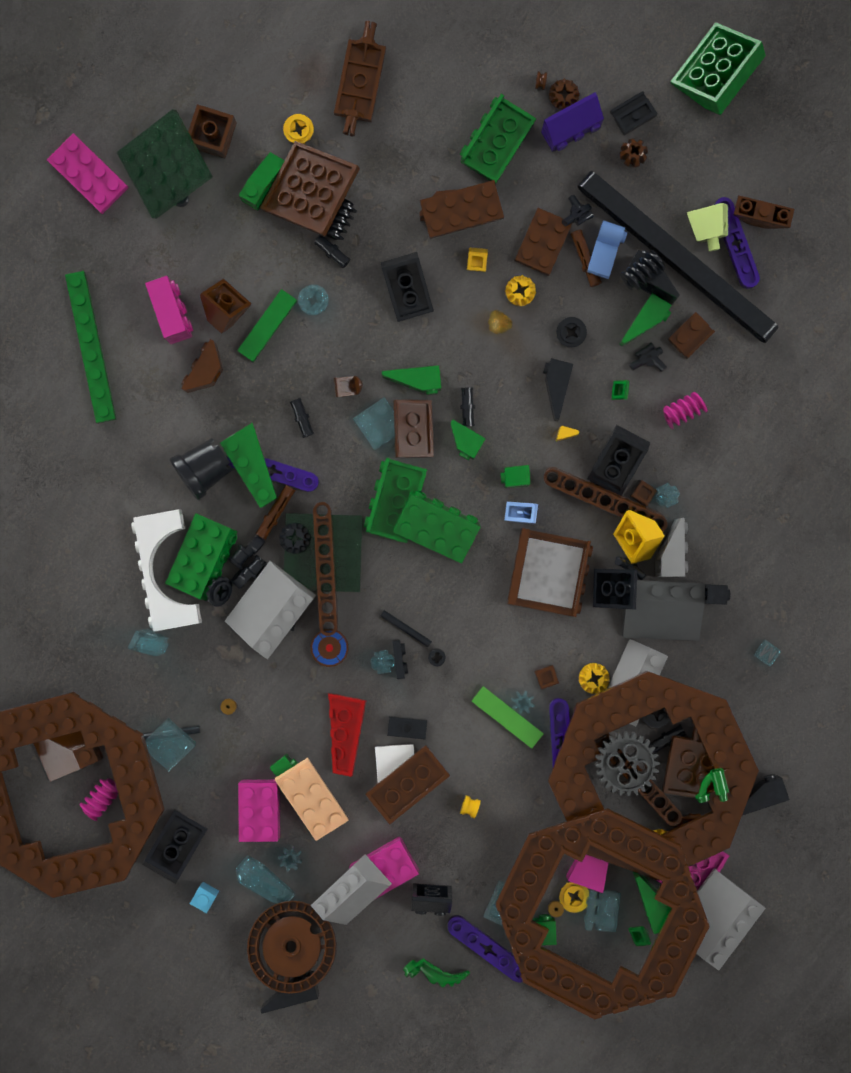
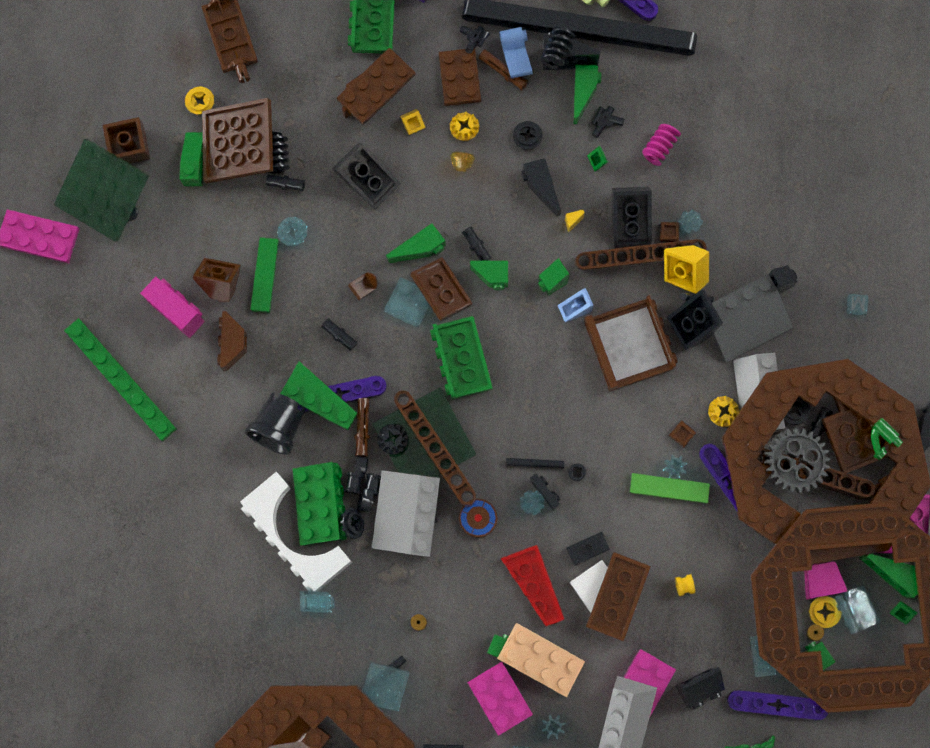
camera: 25 degrees left, 10 degrees down
(437, 526) = (510, 358): green bracket -> none
(671, 555) = (725, 268): light grey slope -> none
(691, 335) = (629, 82): reddish brown plate -> none

